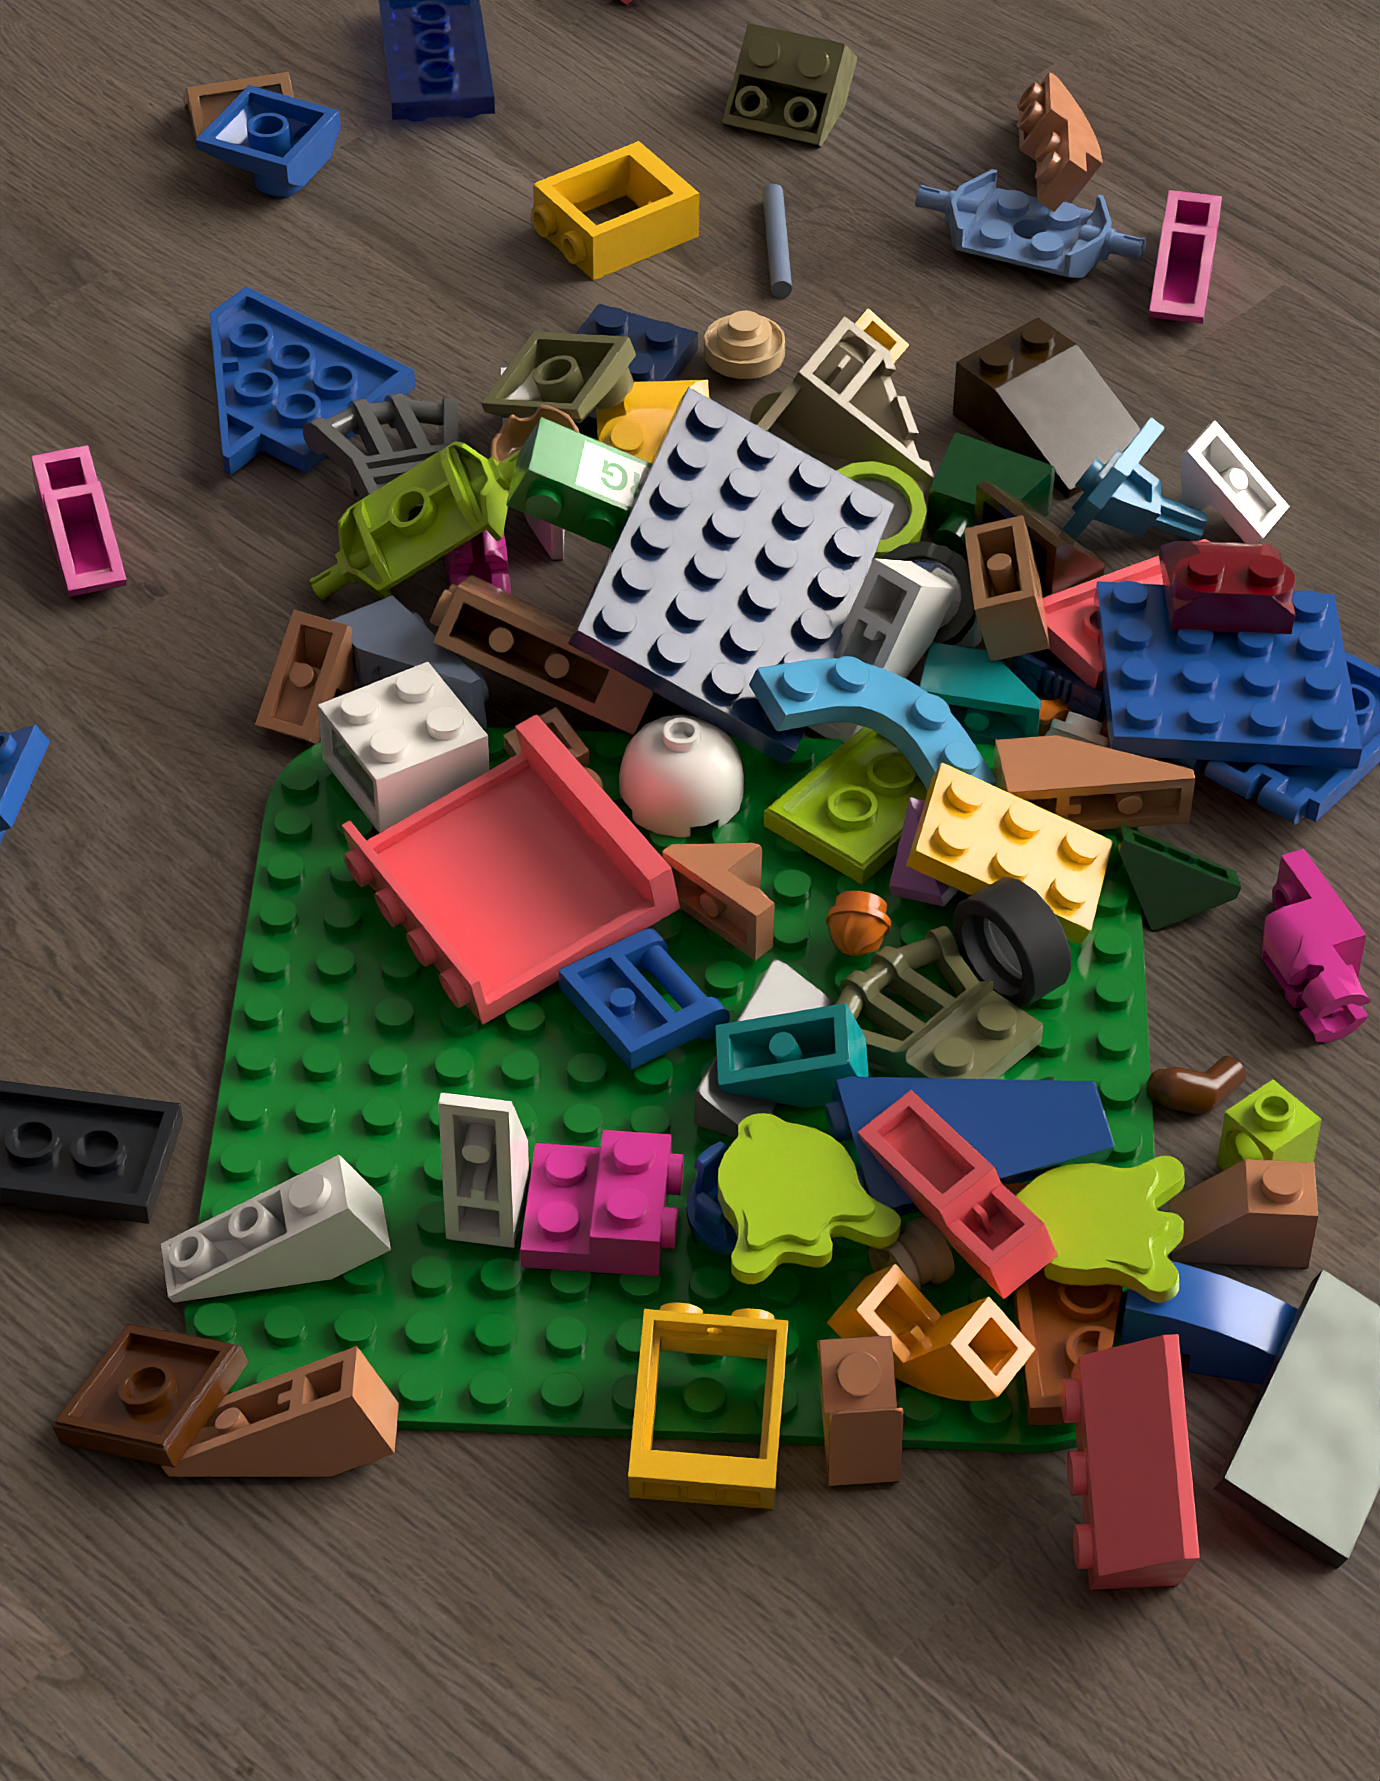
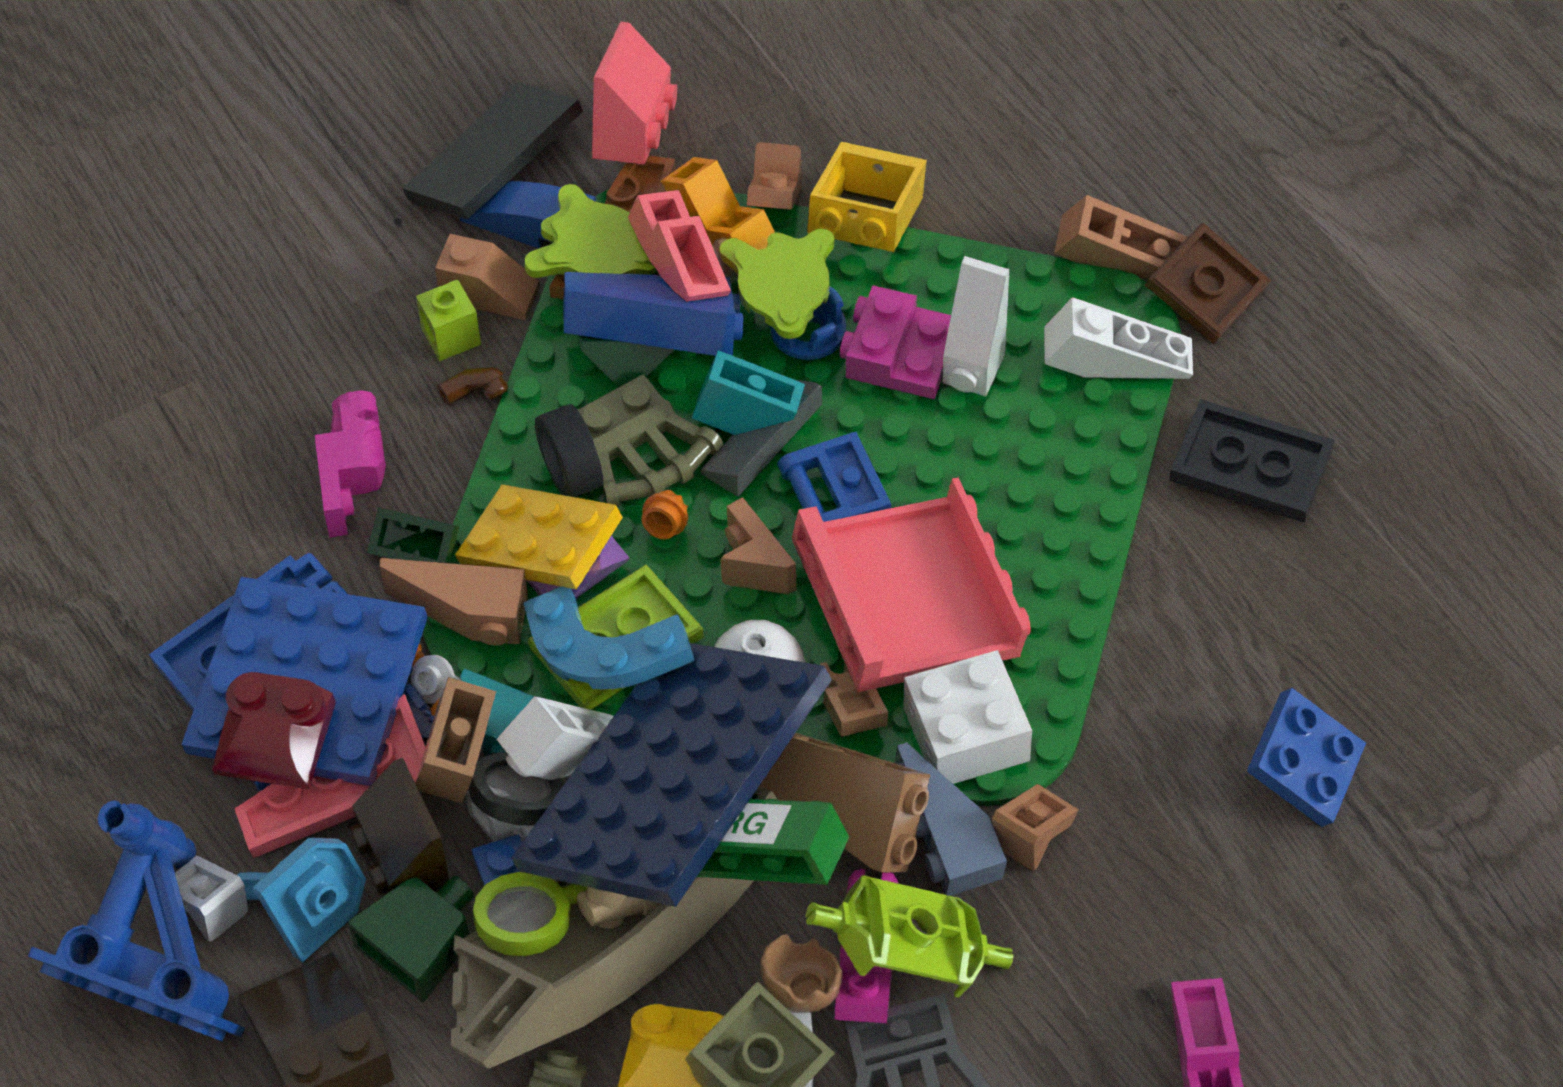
camera: 165 degrees left, 10 degrees up
(1260, 388) = (110, 965): none -> blue plate

